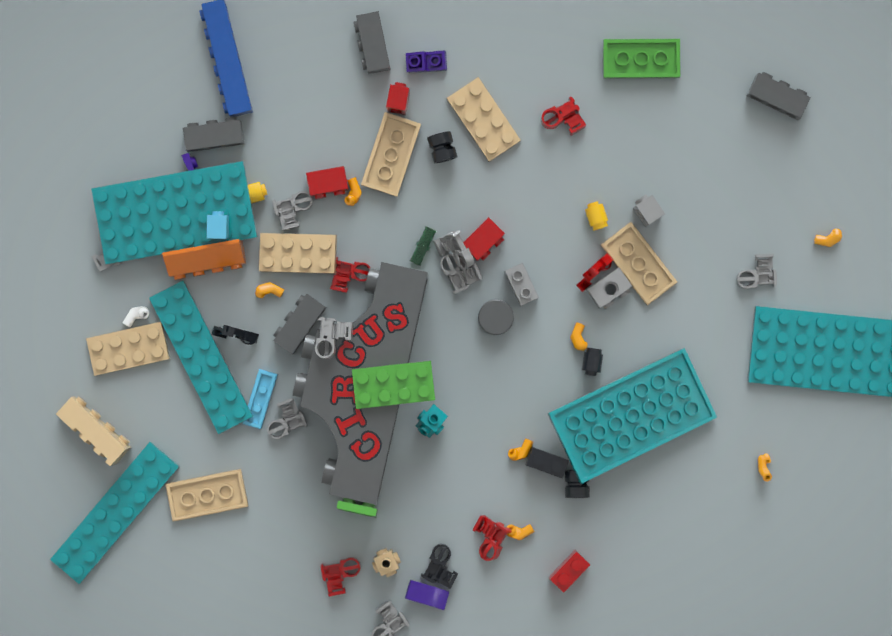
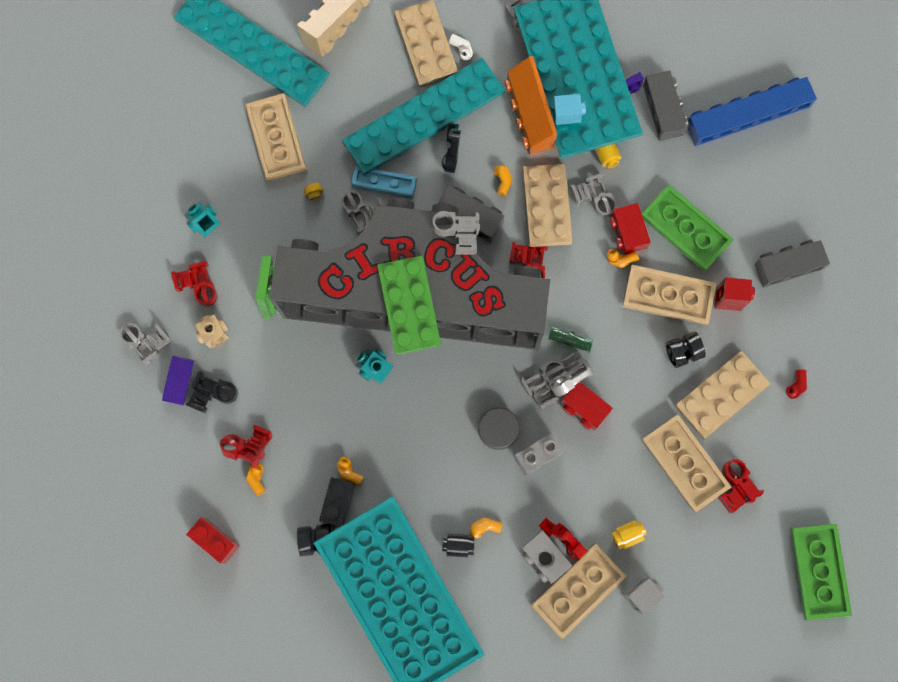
camera: 90 degrees right, 10 degrees down
(264, 463) = (313, 191): none -> yellow plate
(282, 566) = (201, 218): none -> teal brick
(331, 131) = (686, 228): none -> bright green plate
(426, 61) = (778, 324): dark purple slope -> none
(483, 52) = (799, 386): none -> red arm
(540, 159) = (686, 463): none -> tan plate

